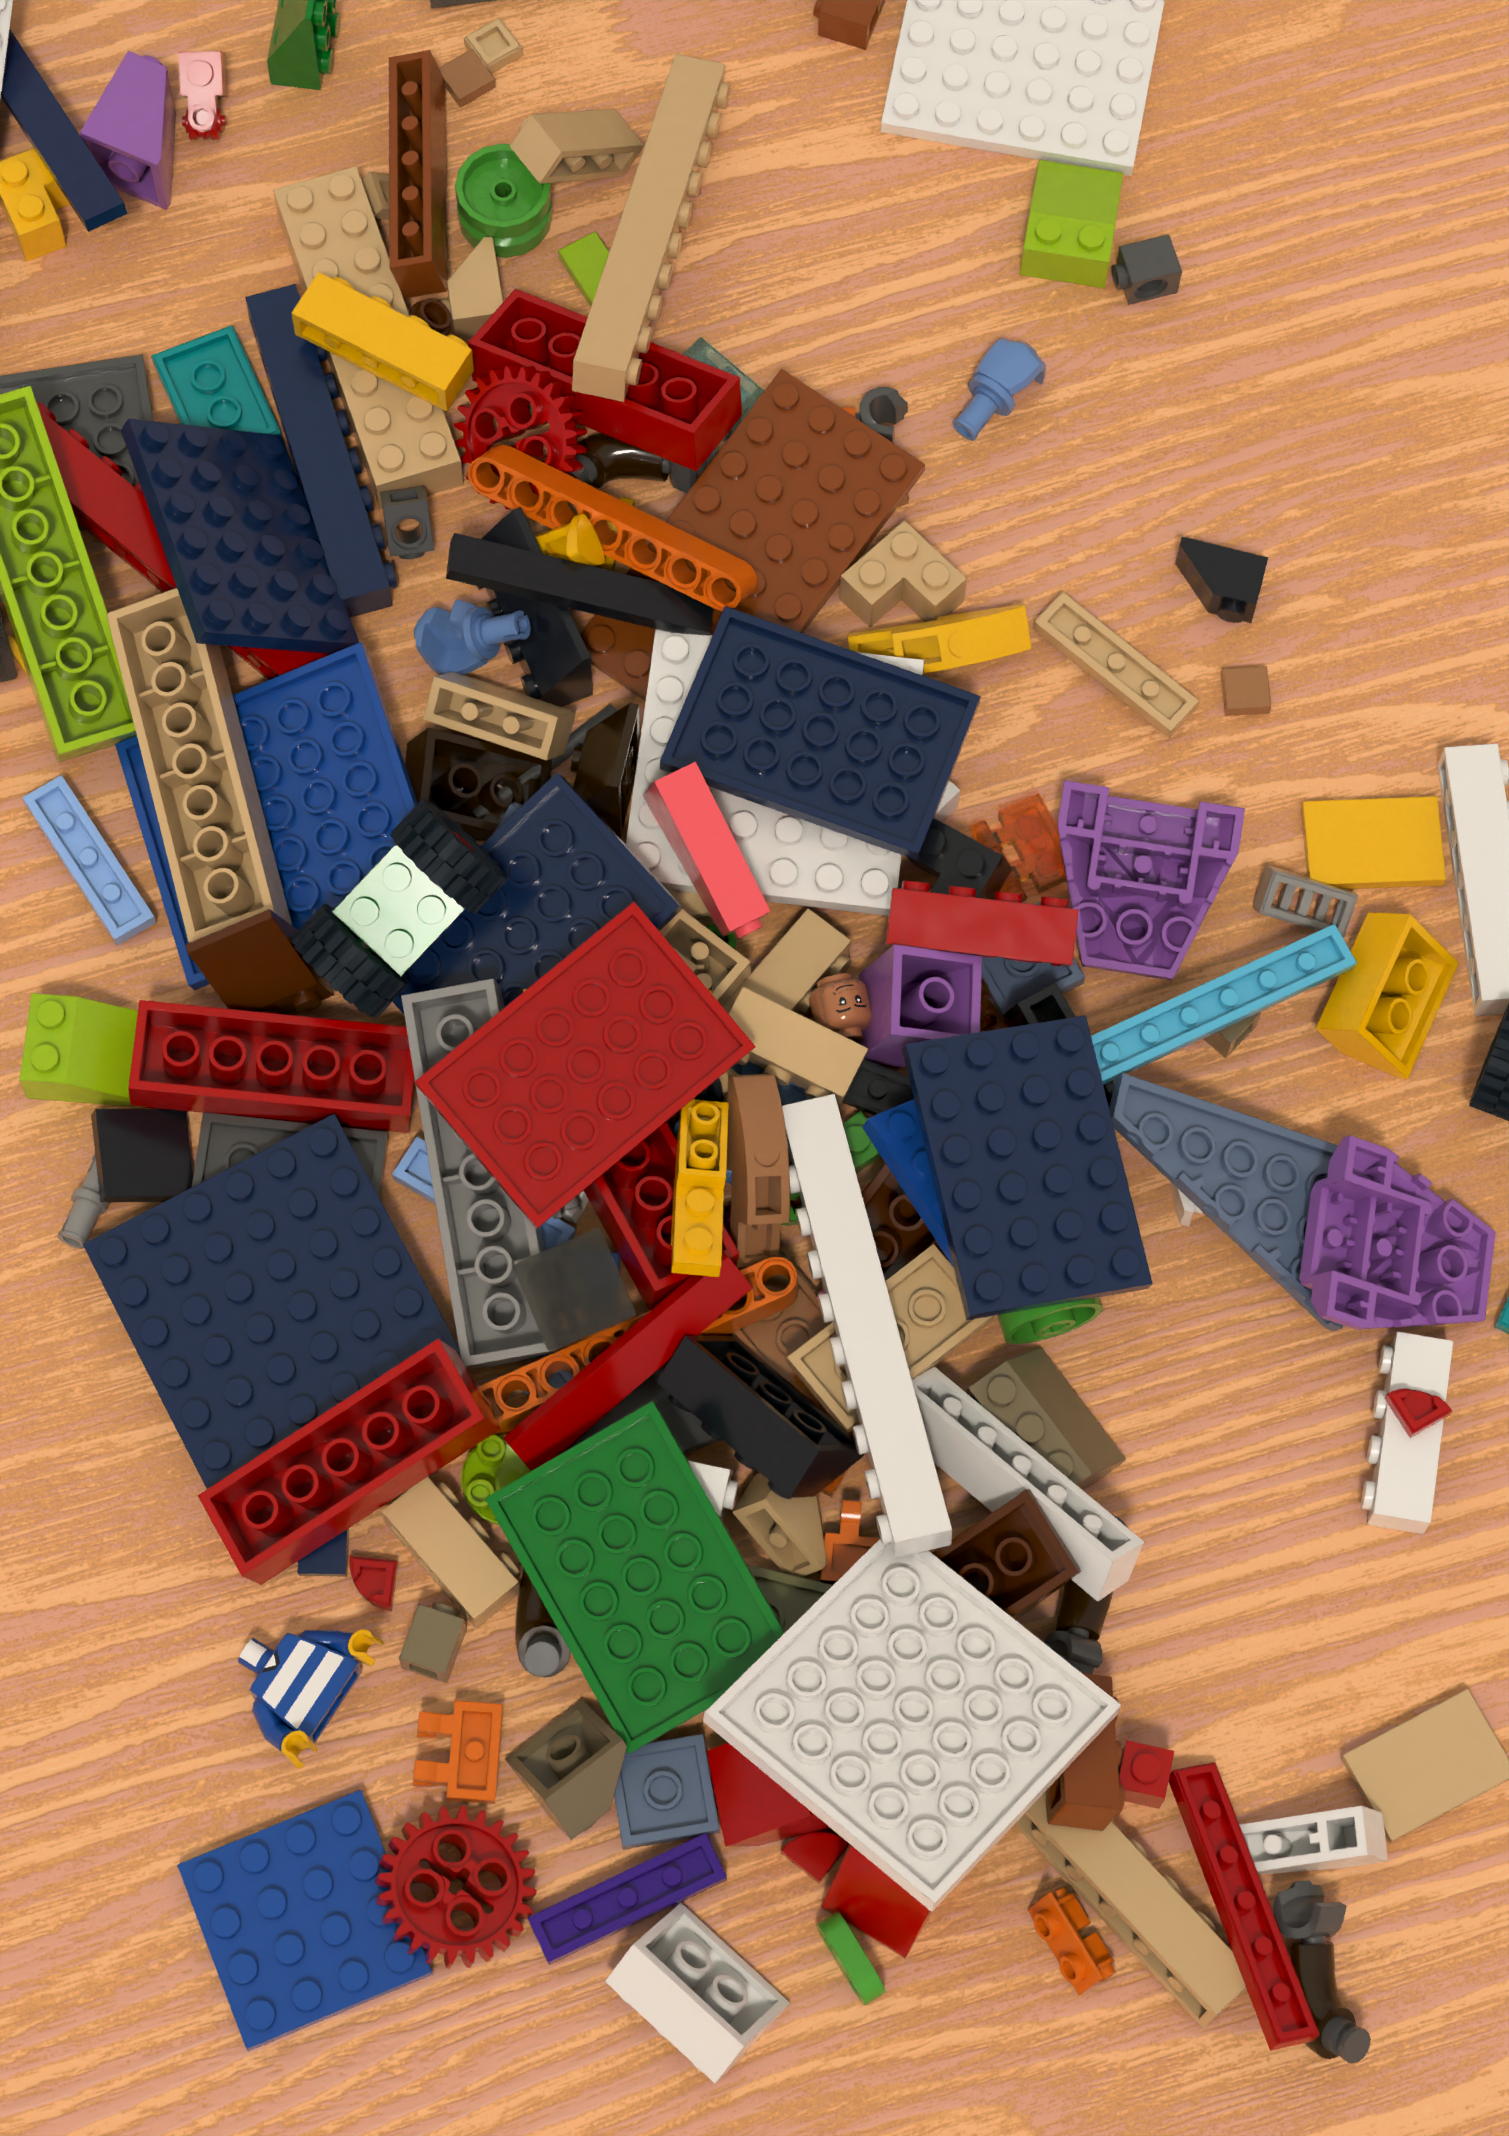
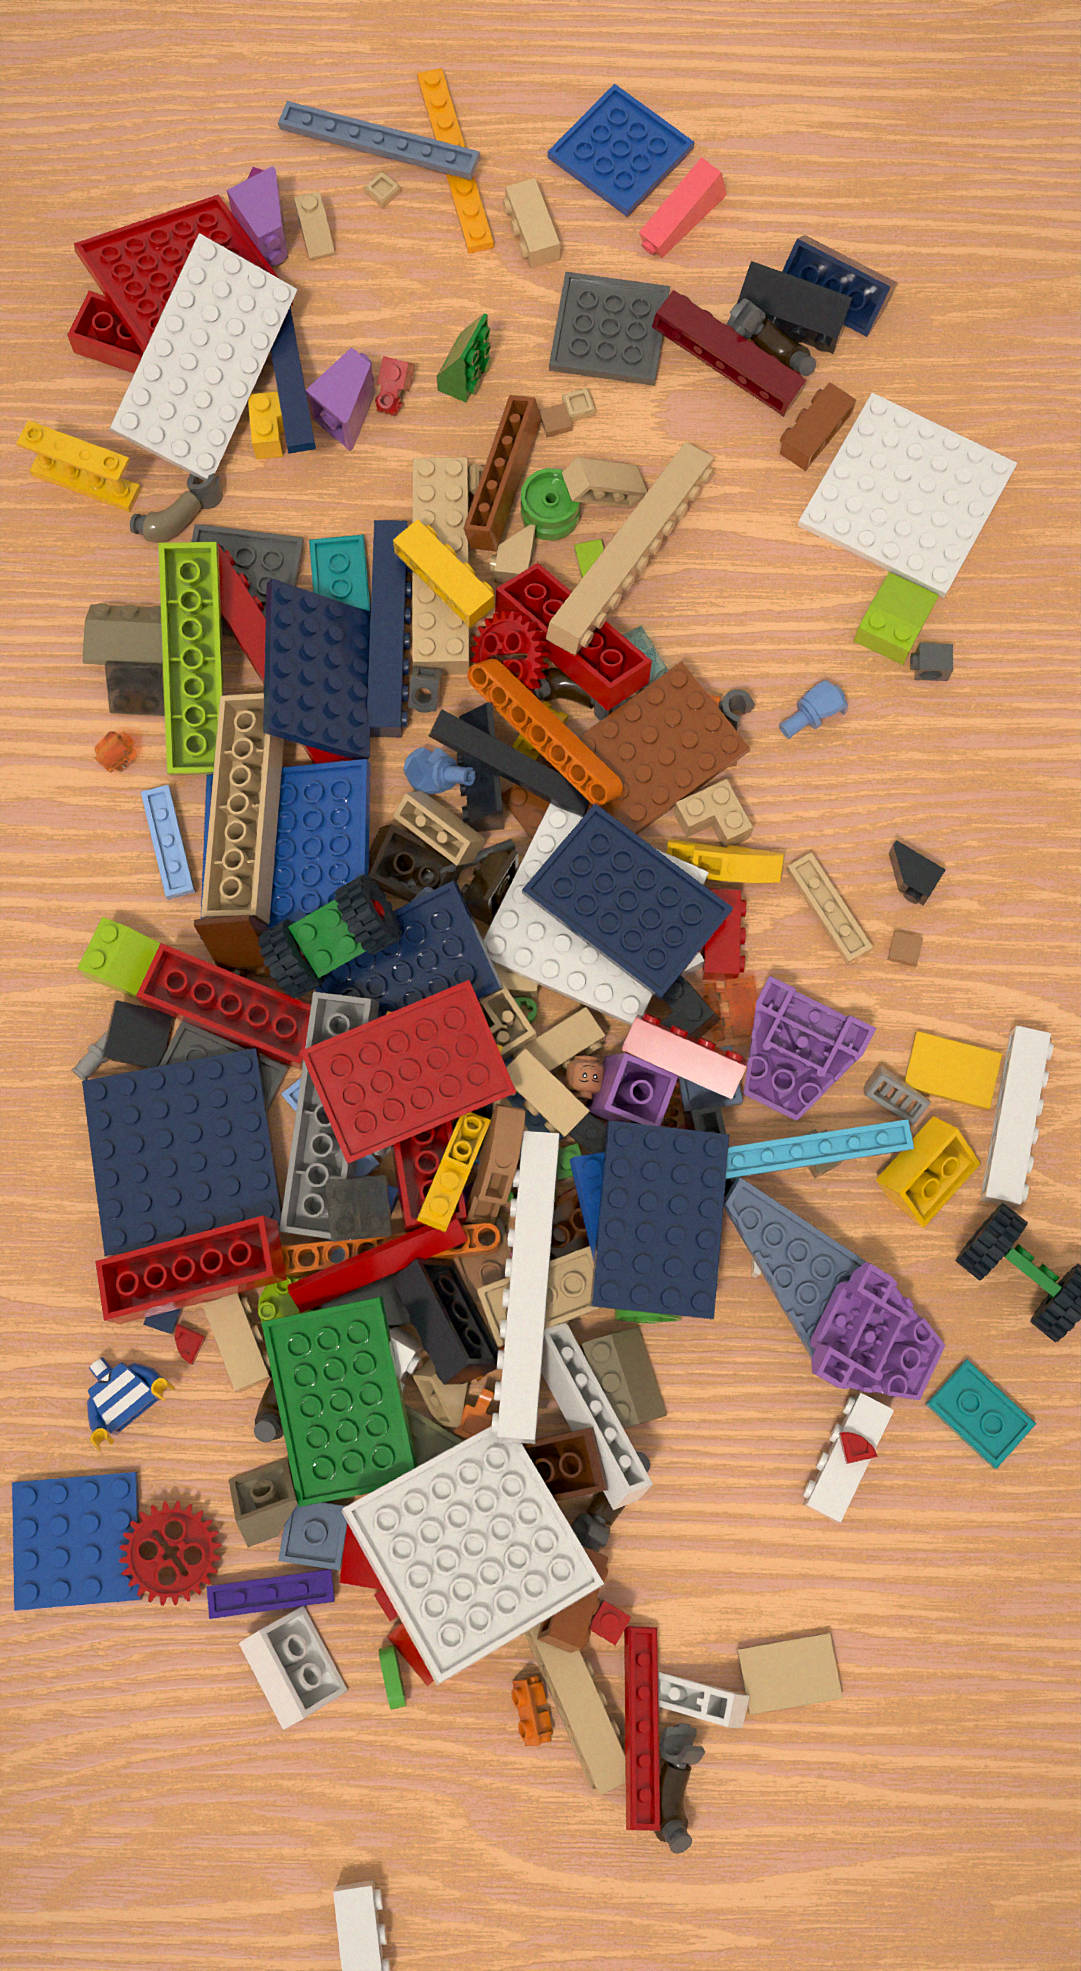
camera: 20 degrees right, 5 degrees up
(433, 1641) = (208, 1394): dark tan brick -> none
(434, 314) = (482, 565): reddish brown plate -> none
(473, 1751) = (209, 1471): orange plate -> none
(573, 542) = (516, 734): yellow tile -> none
(707, 850) = (532, 957): coral slope -> none
(982, 766) = (723, 949): none -> red brick

